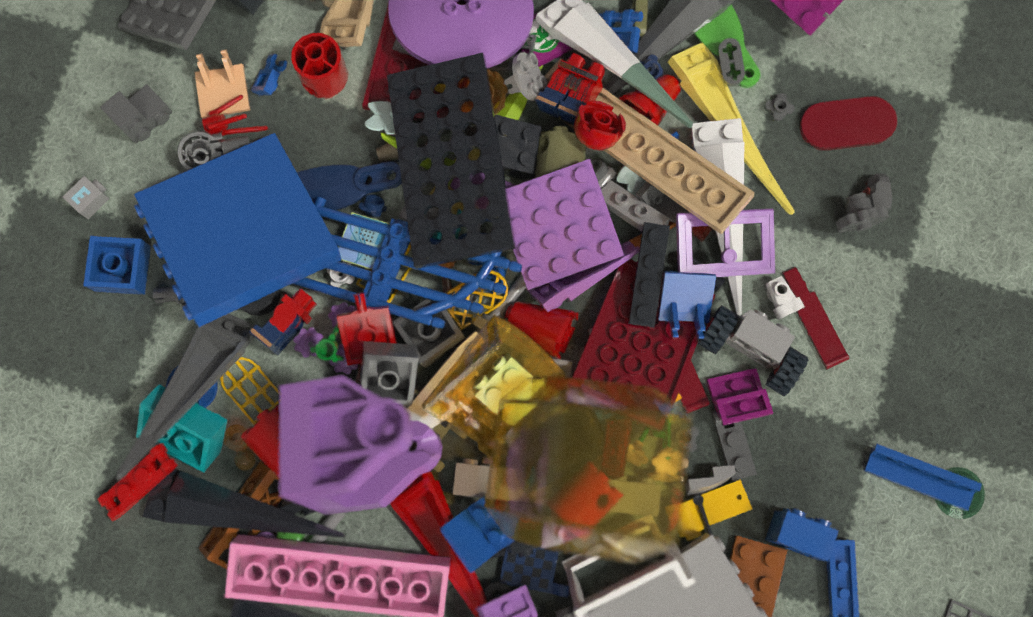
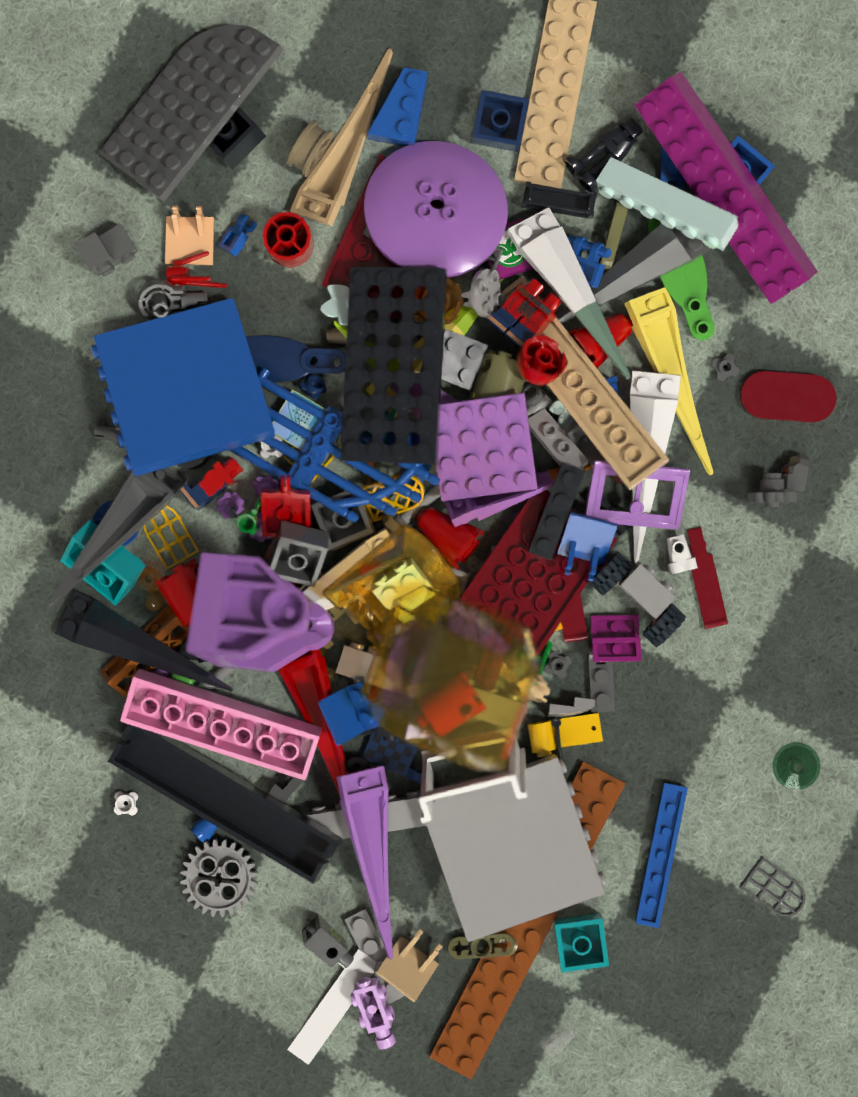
camera: 15 degrees right, 10 degrees up
(86, 196) = (46, 322): light grey brick -> none
(117, 265) = (65, 396): blue brick -> none
(138, 482) = (46, 613): red plate -> none
(656, 69) = (612, 308): dark blue plate -> none
(737, 61) = (681, 314): dark grey beam -> none
(802, 535) = (639, 774): blue brick -> none
(921, 477) = (762, 746): blue fence -> none

